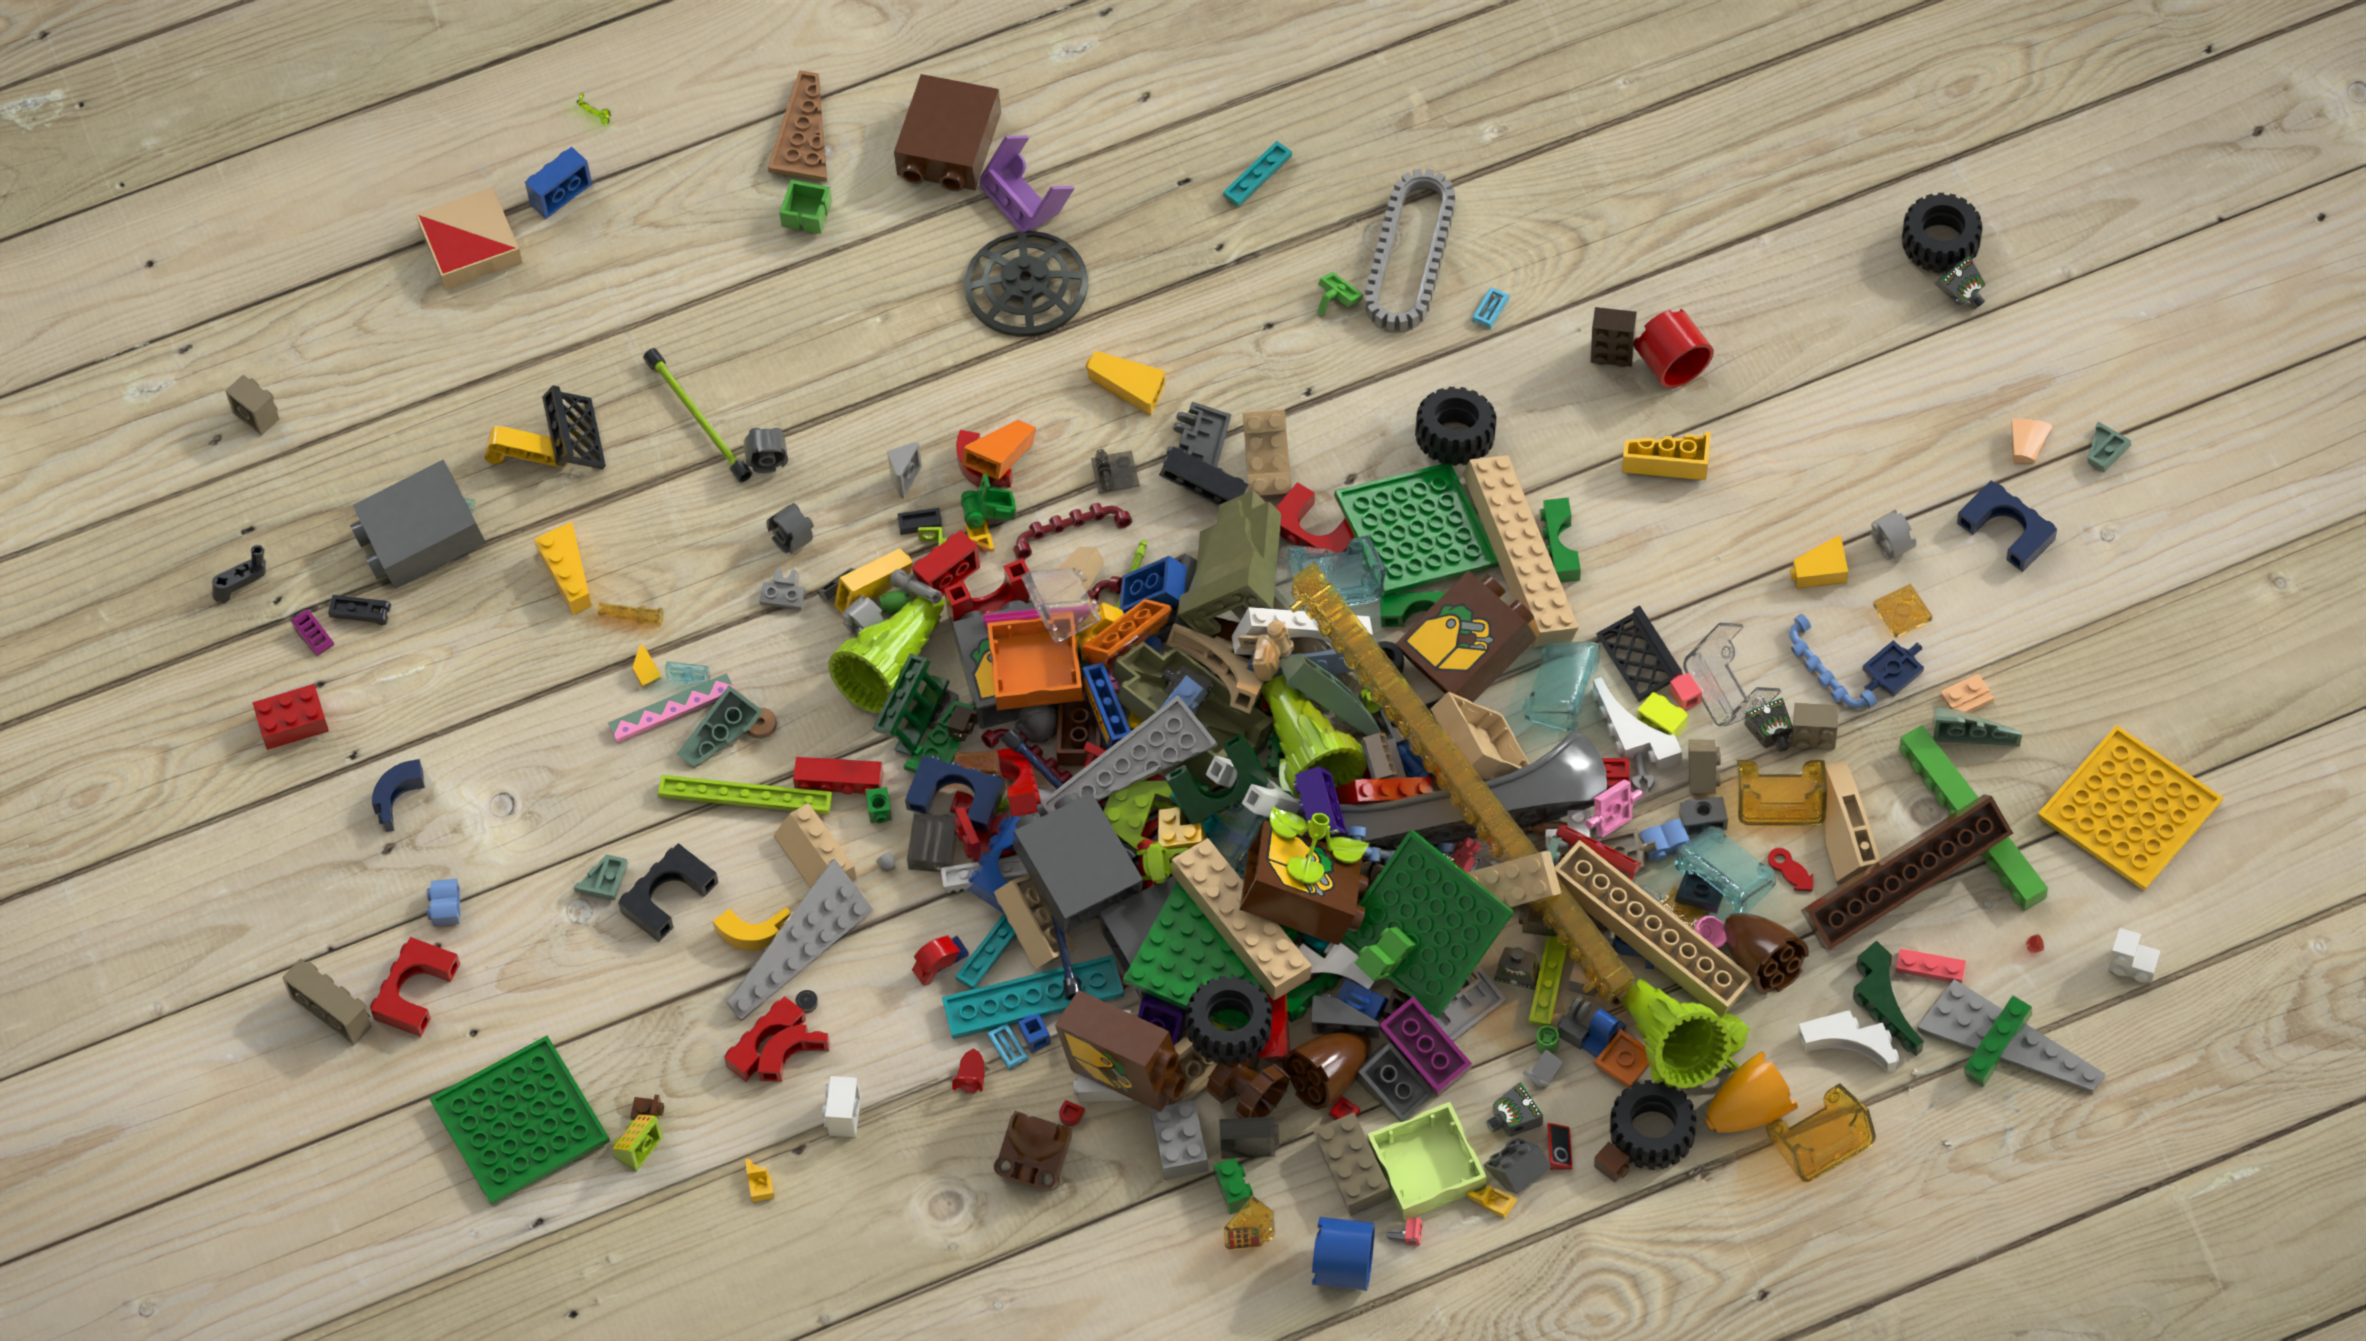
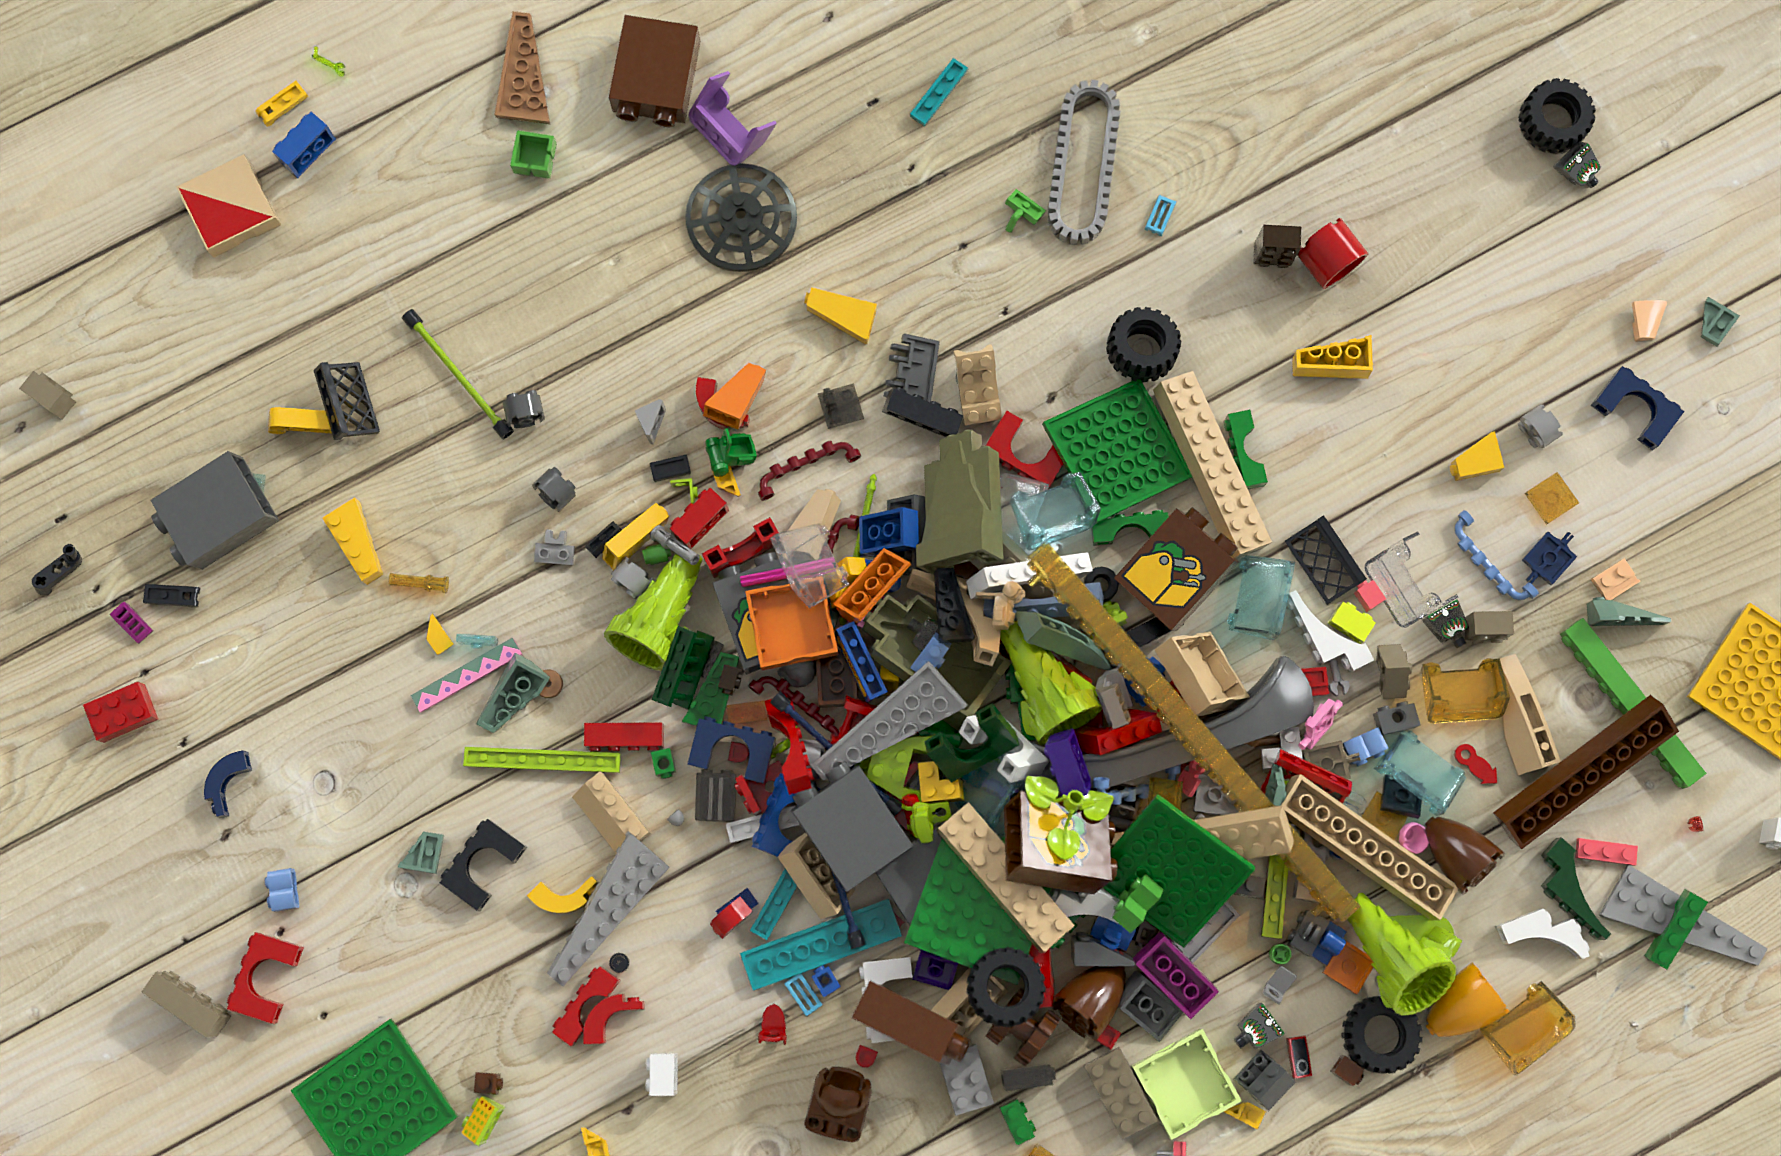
camera: 10 degrees left, 20 degrees up
(537, 145) = (281, 103): none -> yellow plate
(1210, 656) = (951, 611): none -> black wing

